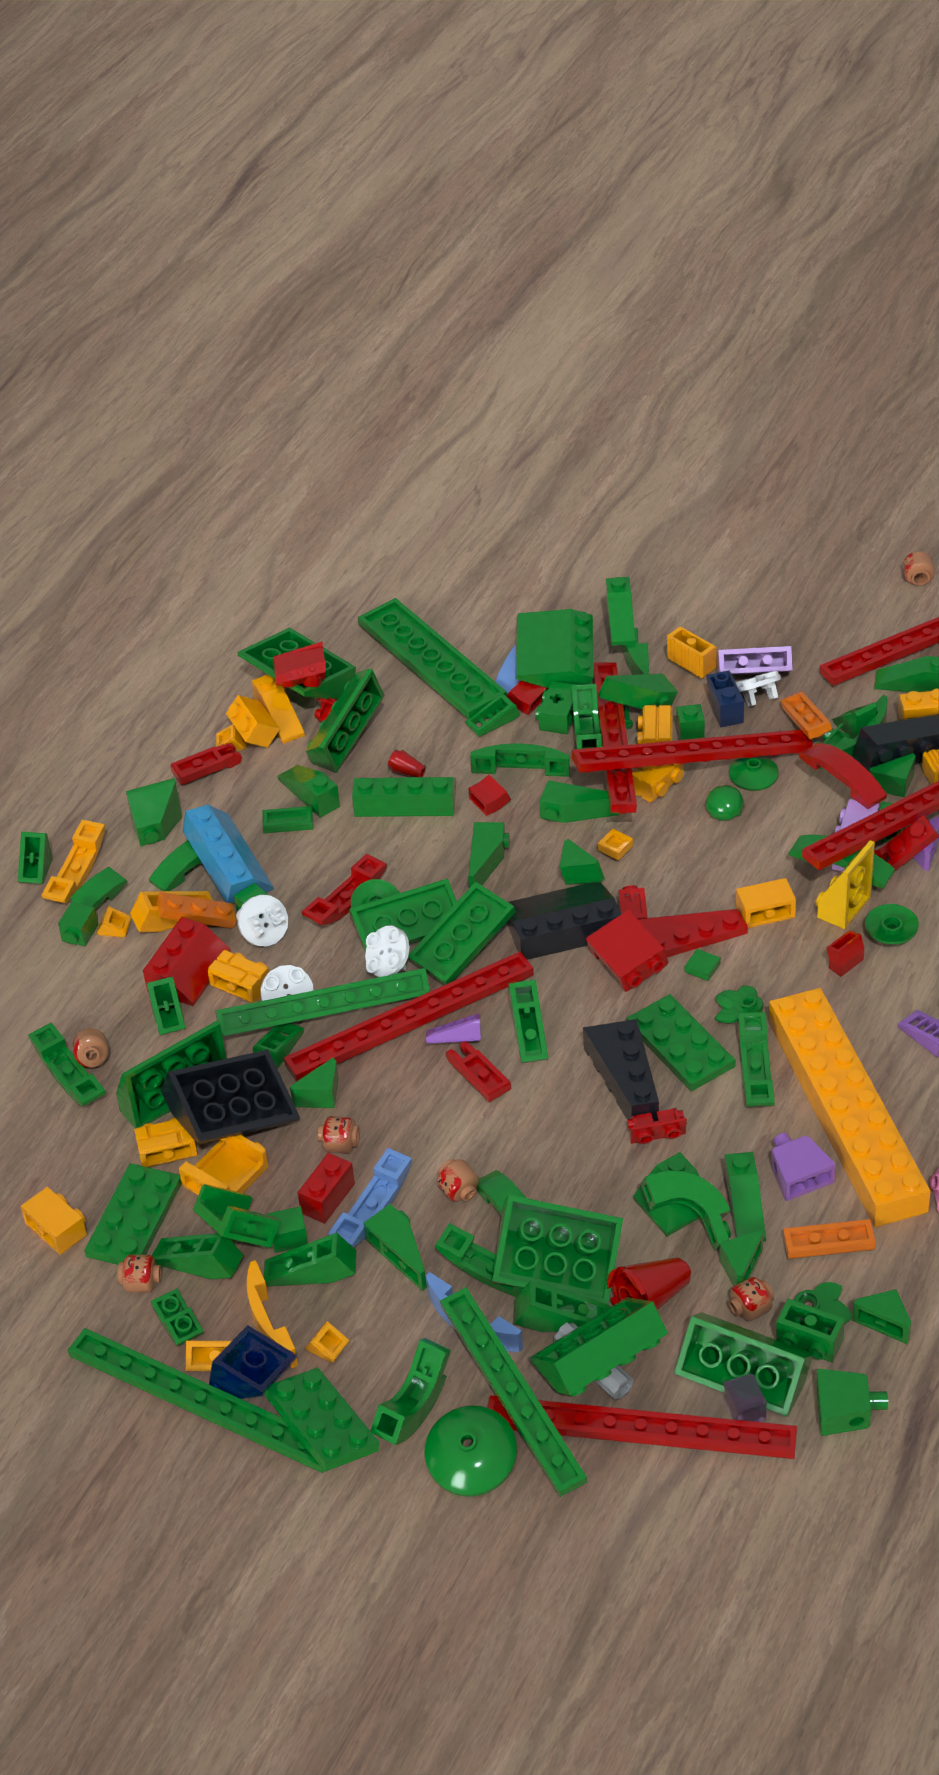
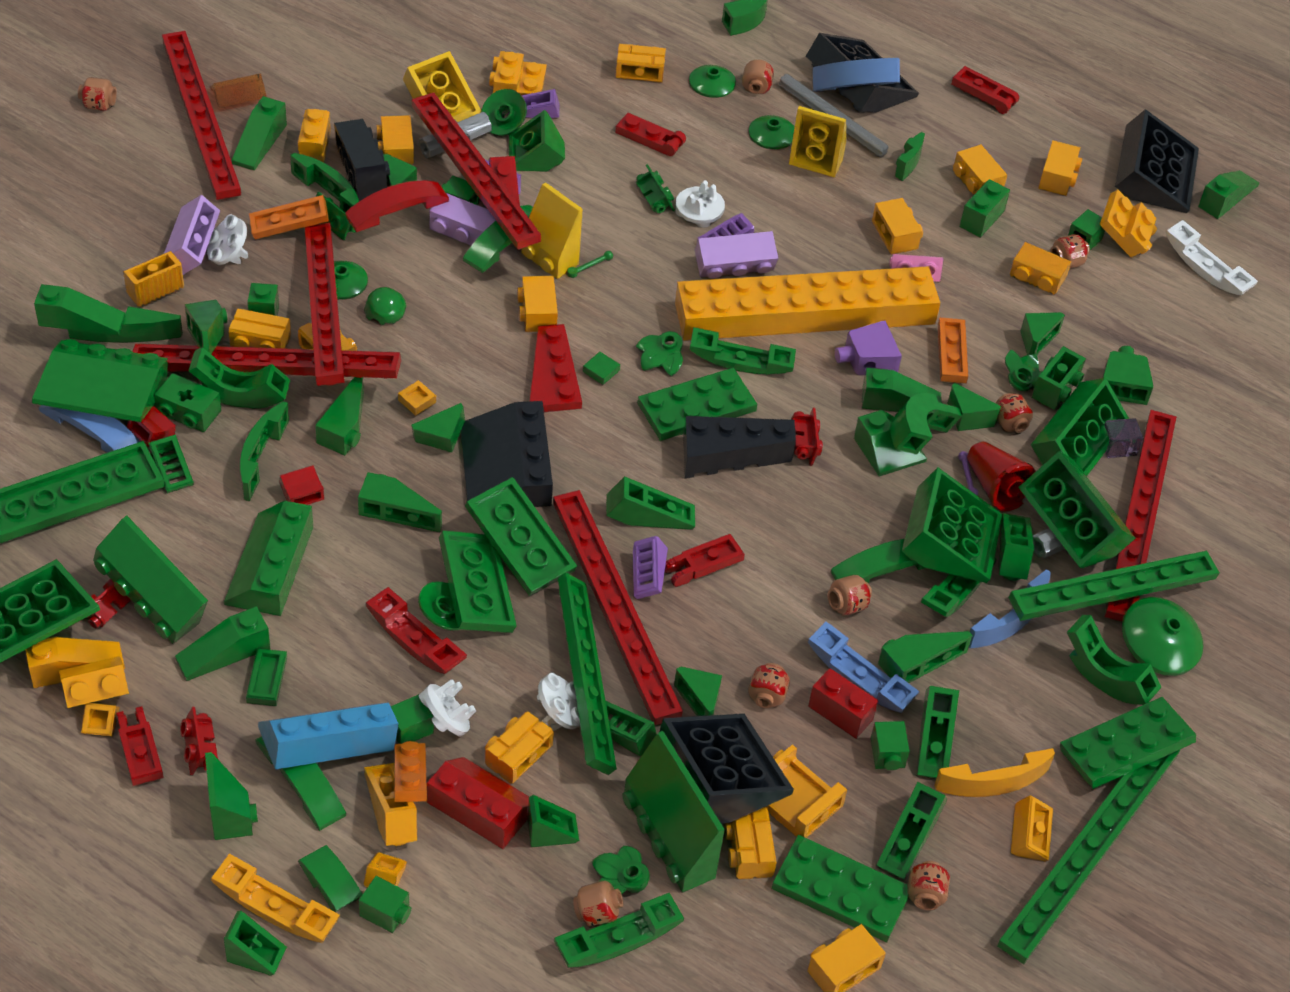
camera: 90 degrees left, 5 degrees up
(124, 1061) = (620, 867): none -> green plate
(176, 1317) = (987, 859): green slope -> none
(224, 788) = (195, 731): none -> red hinge
(229, 1216) = (894, 778): green panel -> none
(249, 1364) = (1069, 790): clear blue slope -> none
(300, 666) = (55, 598): red slope -> none
(327, 1342) = (1024, 735): light orange slope -> none
(378, 955) = (521, 594): white plate -> none
(405, 764) = (222, 552): red cone -> none
(628, 950) = (579, 410): red panel -> none
(633, 899) = (505, 394): red bracket -> none
(725, 699) = (236, 268): dark blue slope -> none
(829, 926) = (573, 272): none -> green hinge
(845, 952) = (622, 263): red piece -> none
(856, 718) = (305, 183): green slope -> none
(891, 924) = (598, 226): green dish -> none
(893, 1037) = (736, 254): none -> lavender brick

